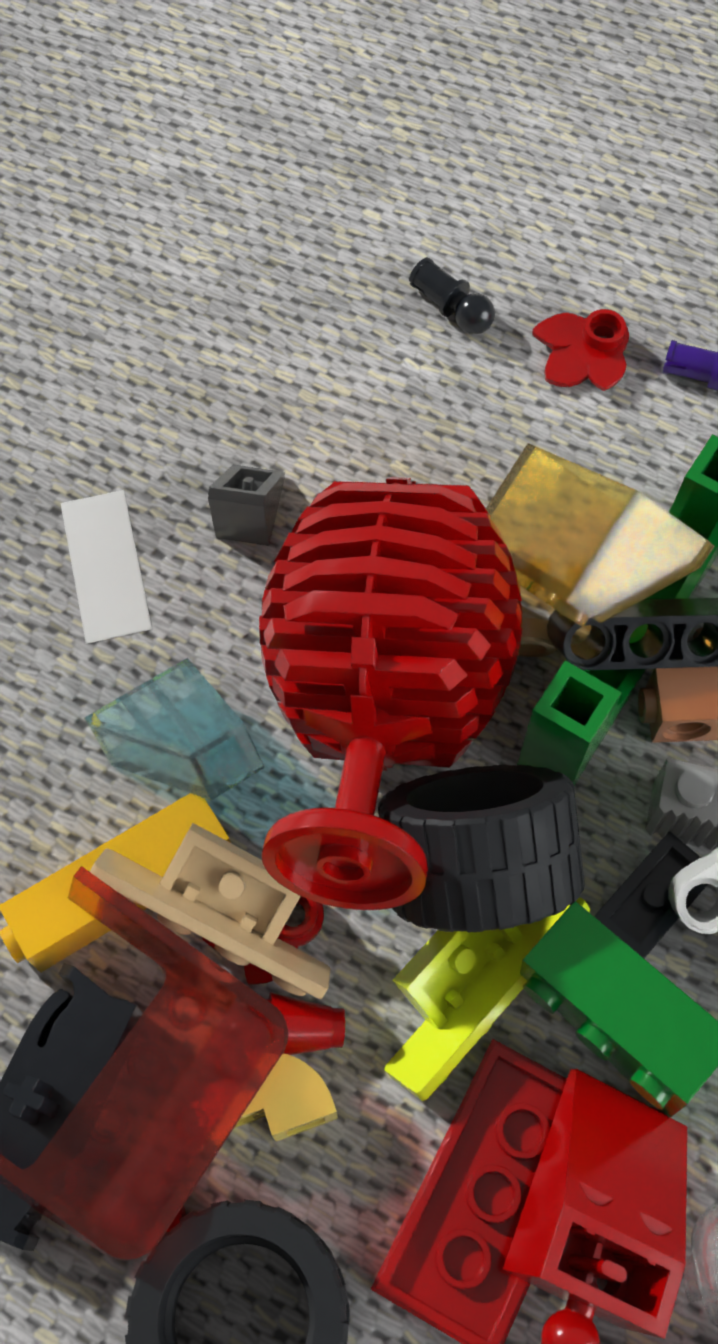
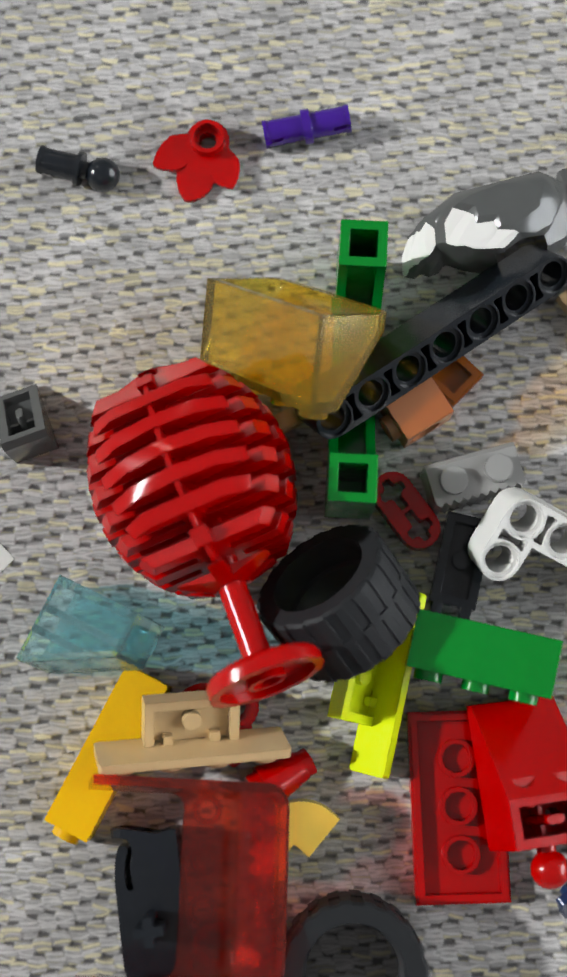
camera: 30 degrees left, 15 degrees up
(630, 805) = (414, 504): none -> red beam

